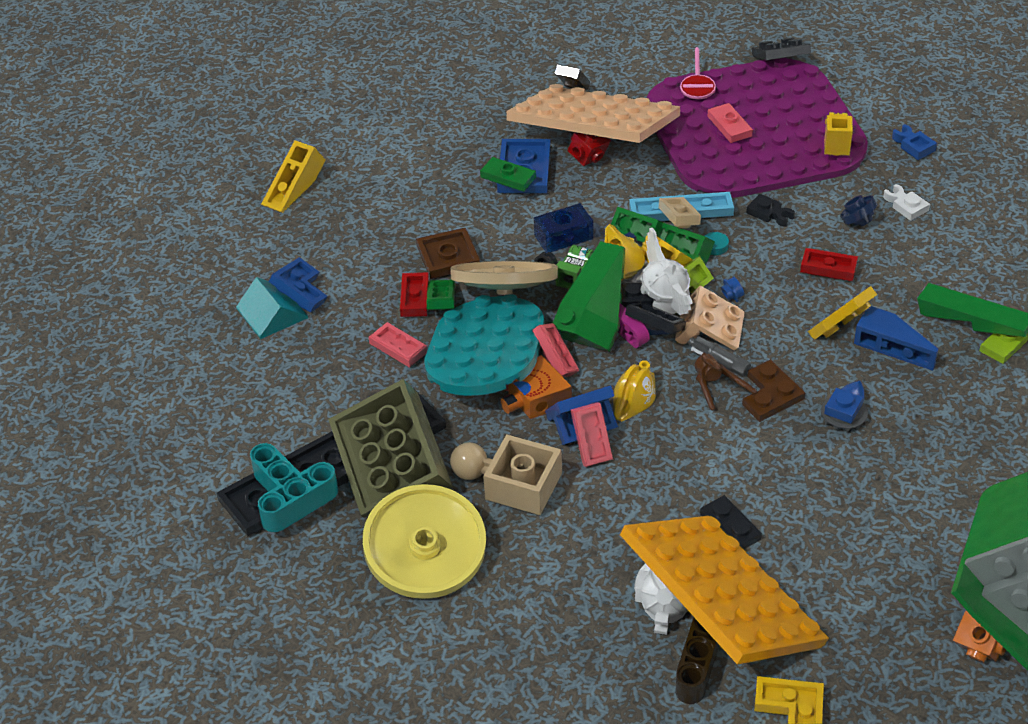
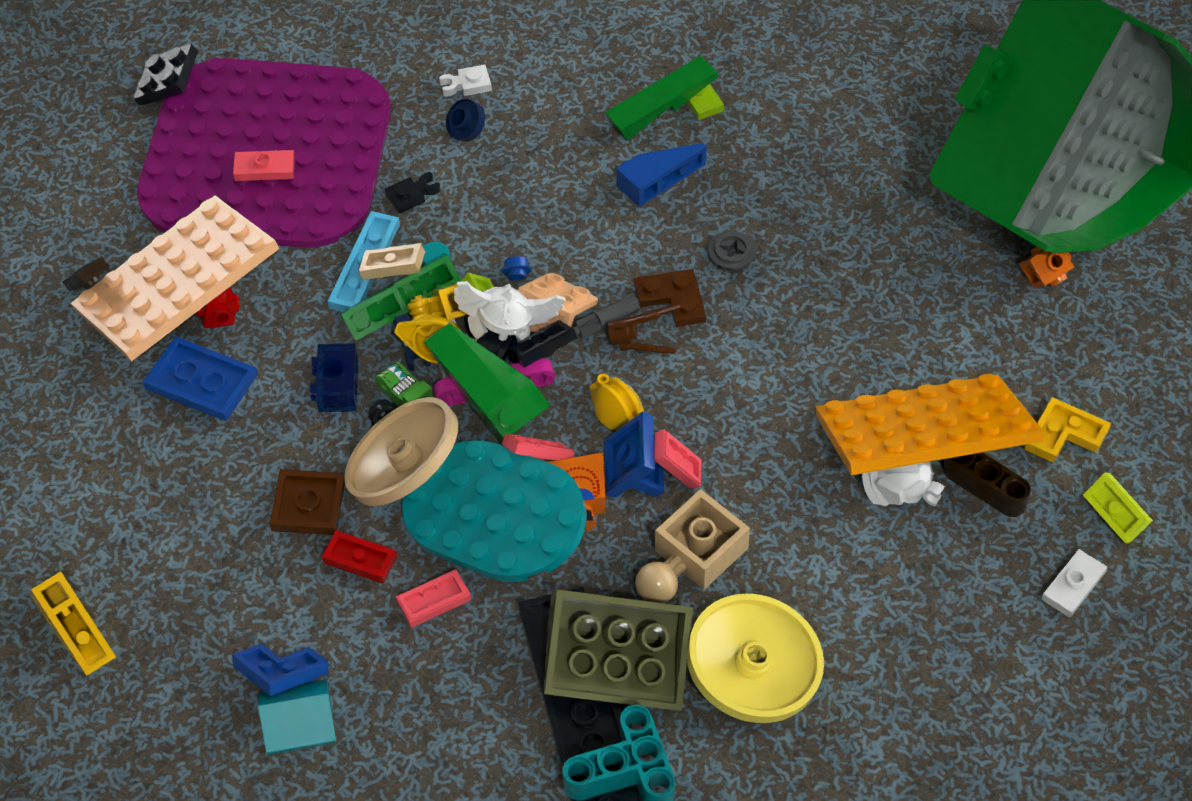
camera: 70 degrees left, 10 degrees up
(441, 294) = (381, 528): green plate -> none
(508, 174) = (218, 395): green plate -> none
(697, 85) = (174, 169): piece -> none
(732, 521) = (820, 392): black plate -> none
(829, 264) = (525, 177): red plate -> none
(838, 134) = (357, 83): yellow brick -> none
(844, 314) = (606, 190): yellow plate -> none
(846, 402) = (727, 241): blue plate -> none
(915, 144) = (387, 34): blue plate -> none

